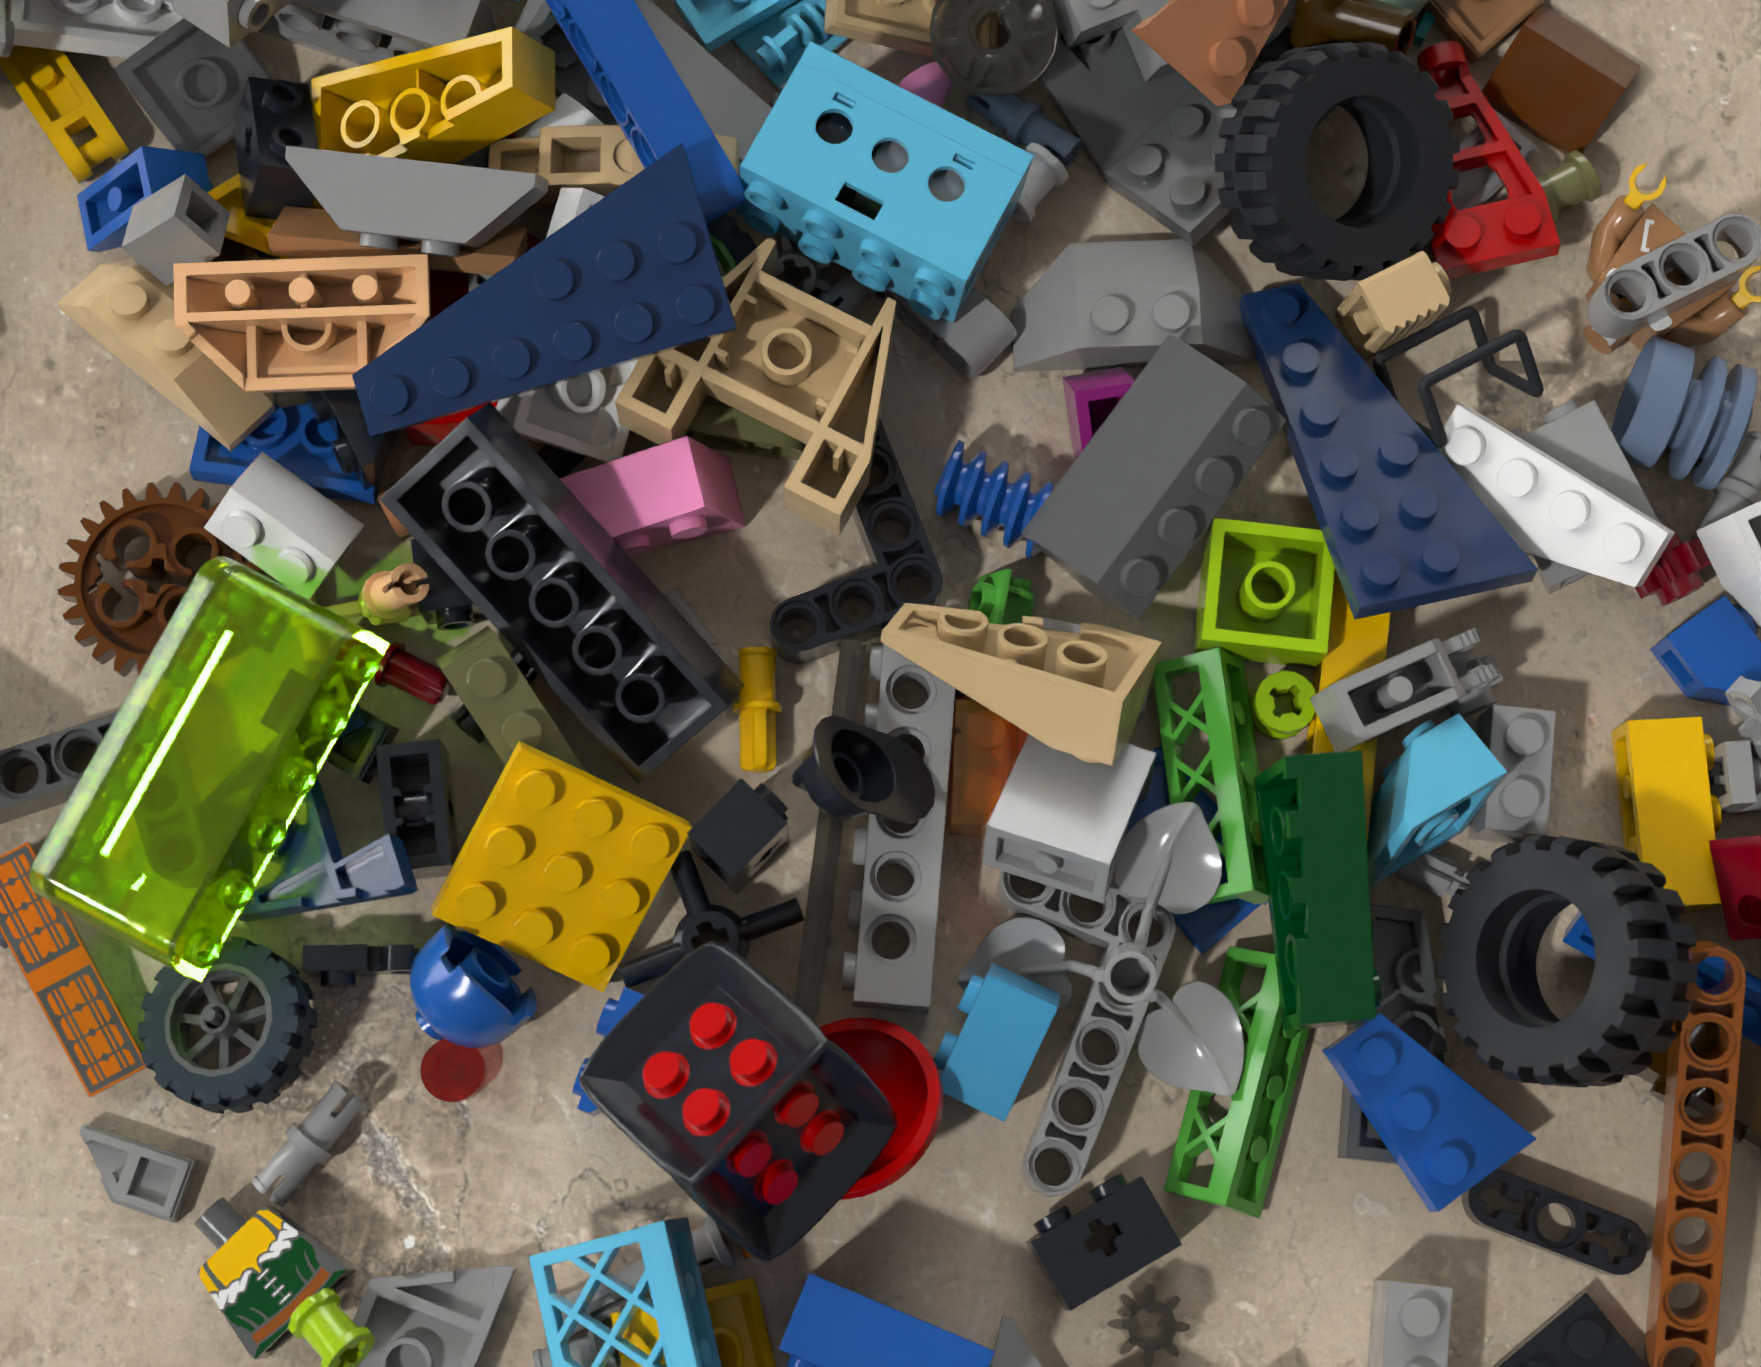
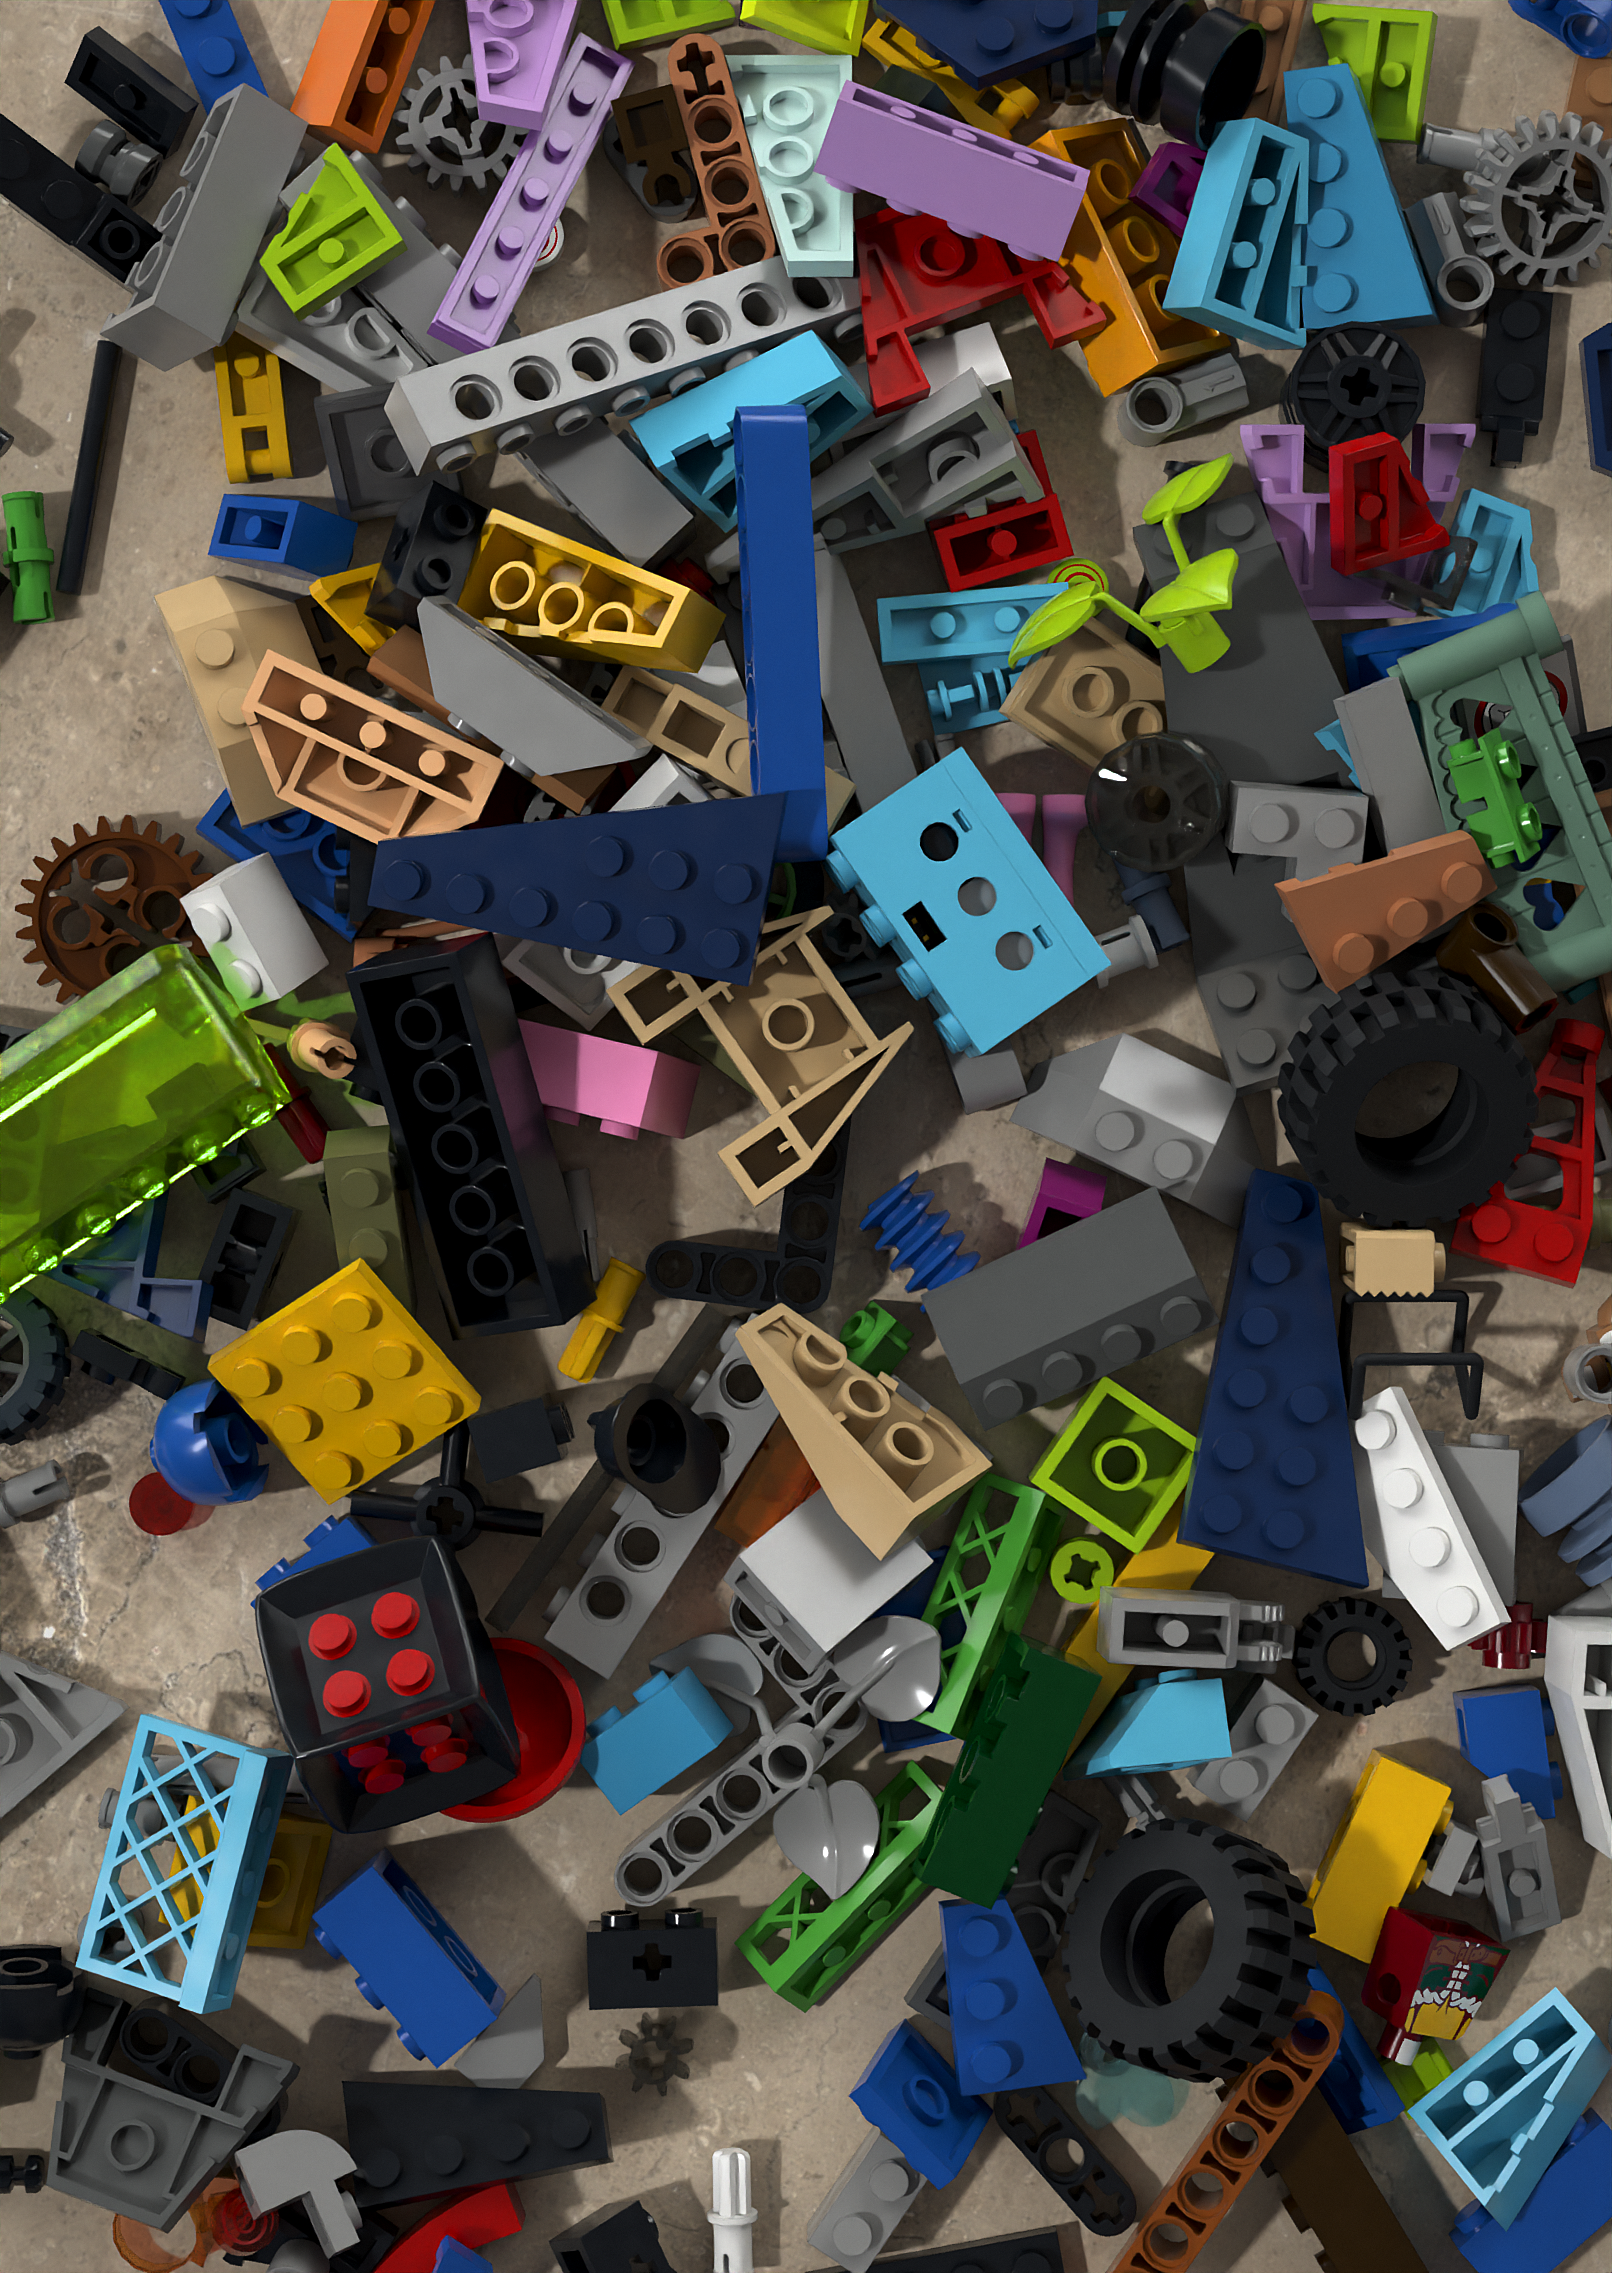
camera: 30 degrees right, 10 degrees up
(175, 227) = (290, 603): light grey brick -> none
(1401, 1235) = (917, 2105): none -> blue plate
(1573, 1128) = (1120, 2087): none -> clear light blue plate
(1576, 632) = (1389, 1667): none -> black tyre

